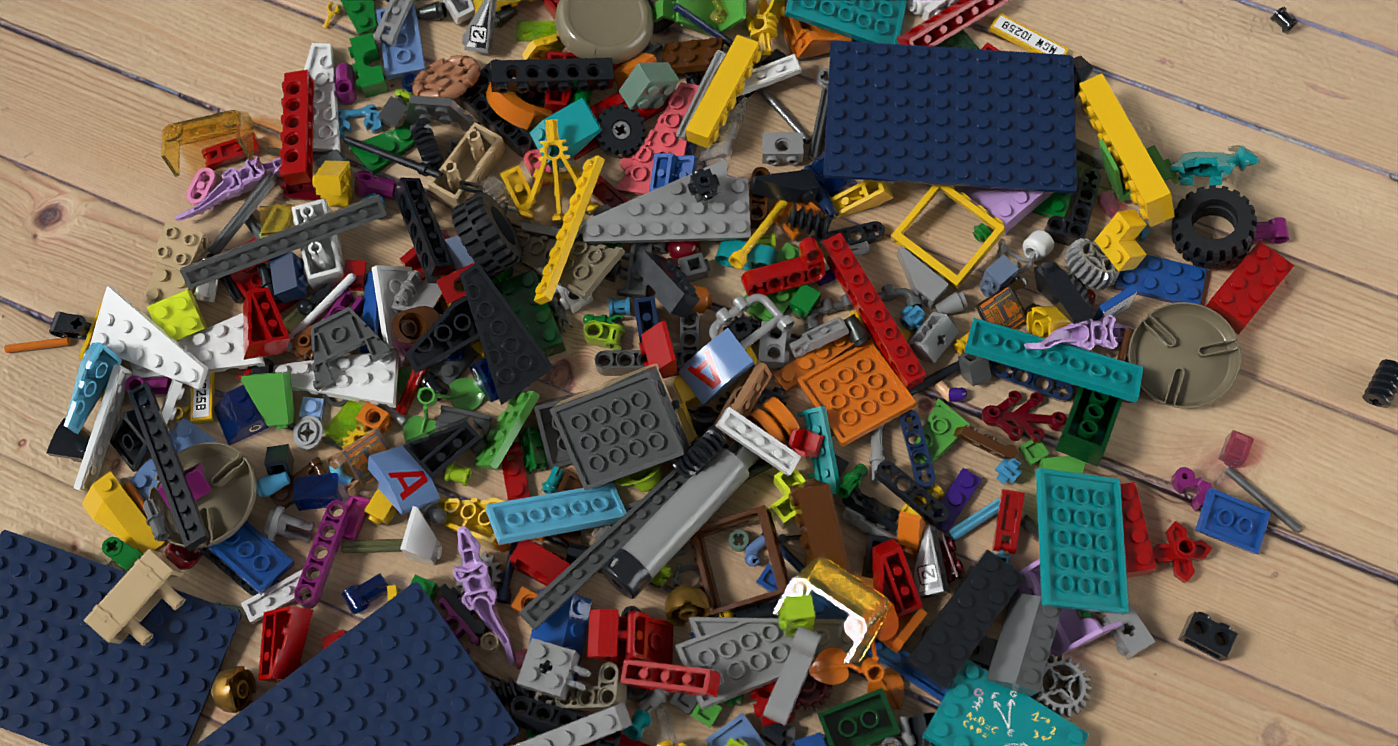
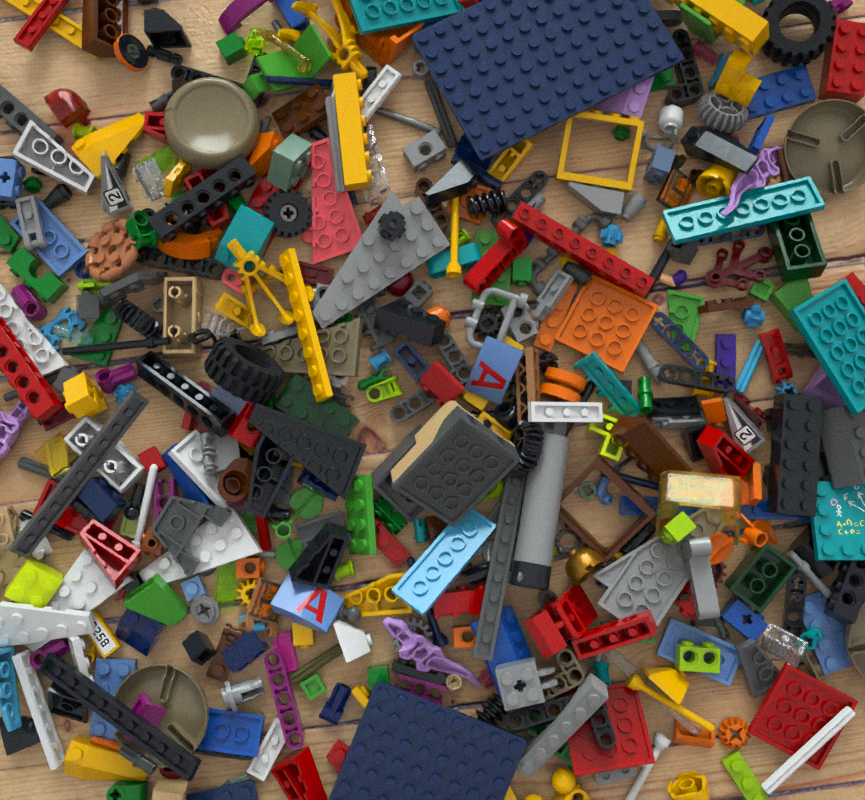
camera: 35 degrees left, 15 degrees up
(243, 214) = (24, 470): dark grey axle -> none
(272, 483) = (206, 669): dark azure cone -> none
(356, 564) = (313, 686): none -> bright green plate
(362, 128) = (72, 334): none -> clear light blue axle
(480, 72) = (139, 230): none -> green piece
(520, 33) = (151, 179): none -> clear brick
(670, 168) = (351, 225): blue slope -> none
(805, 442) = (597, 388): red panel -> none
(933, 337) = (637, 243): light grey brick -> none

